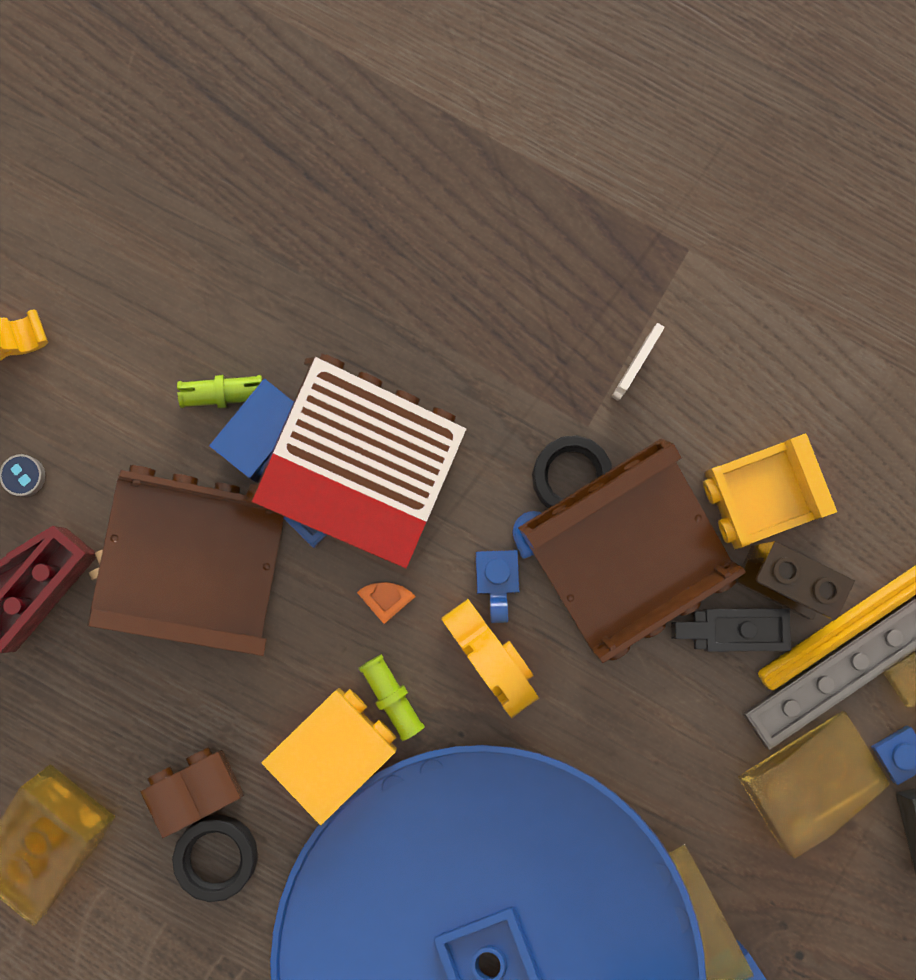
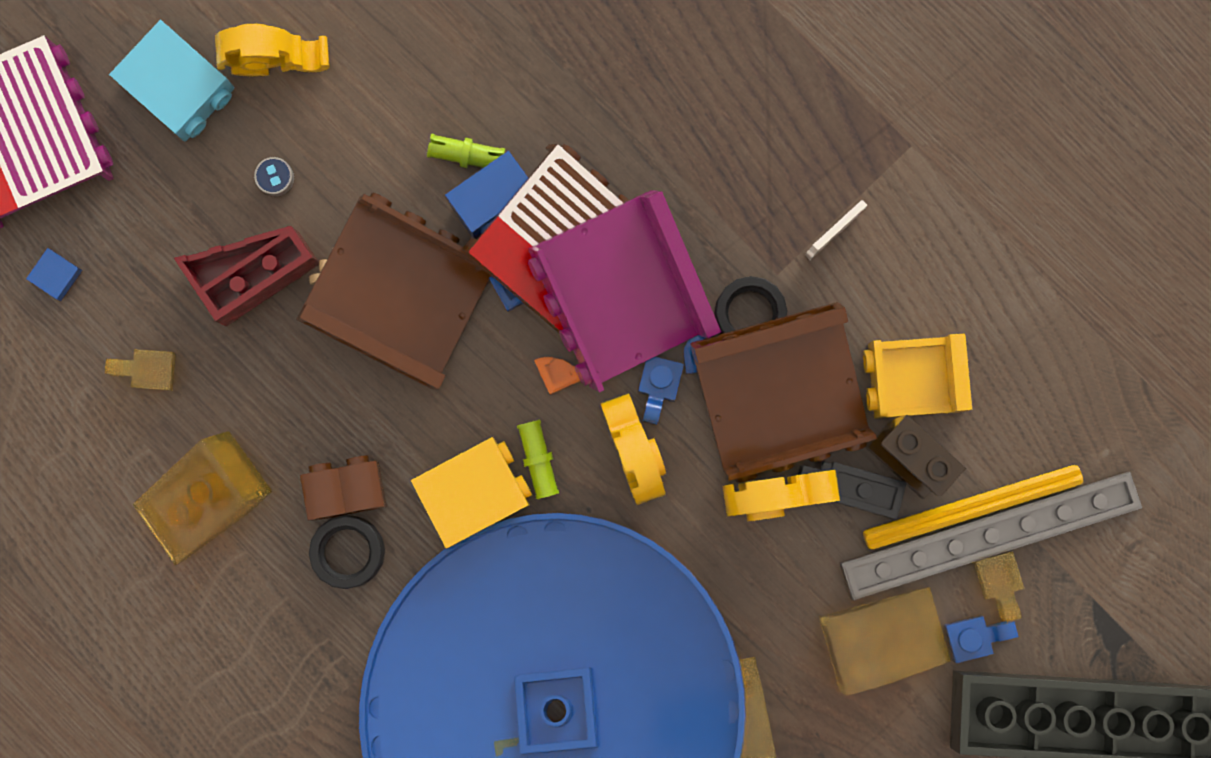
camera: 20 degrees right, 0 degrees up
(428, 490) = (622, 288): none -> magenta panel
(651, 670) = (771, 496): none -> yellow piece

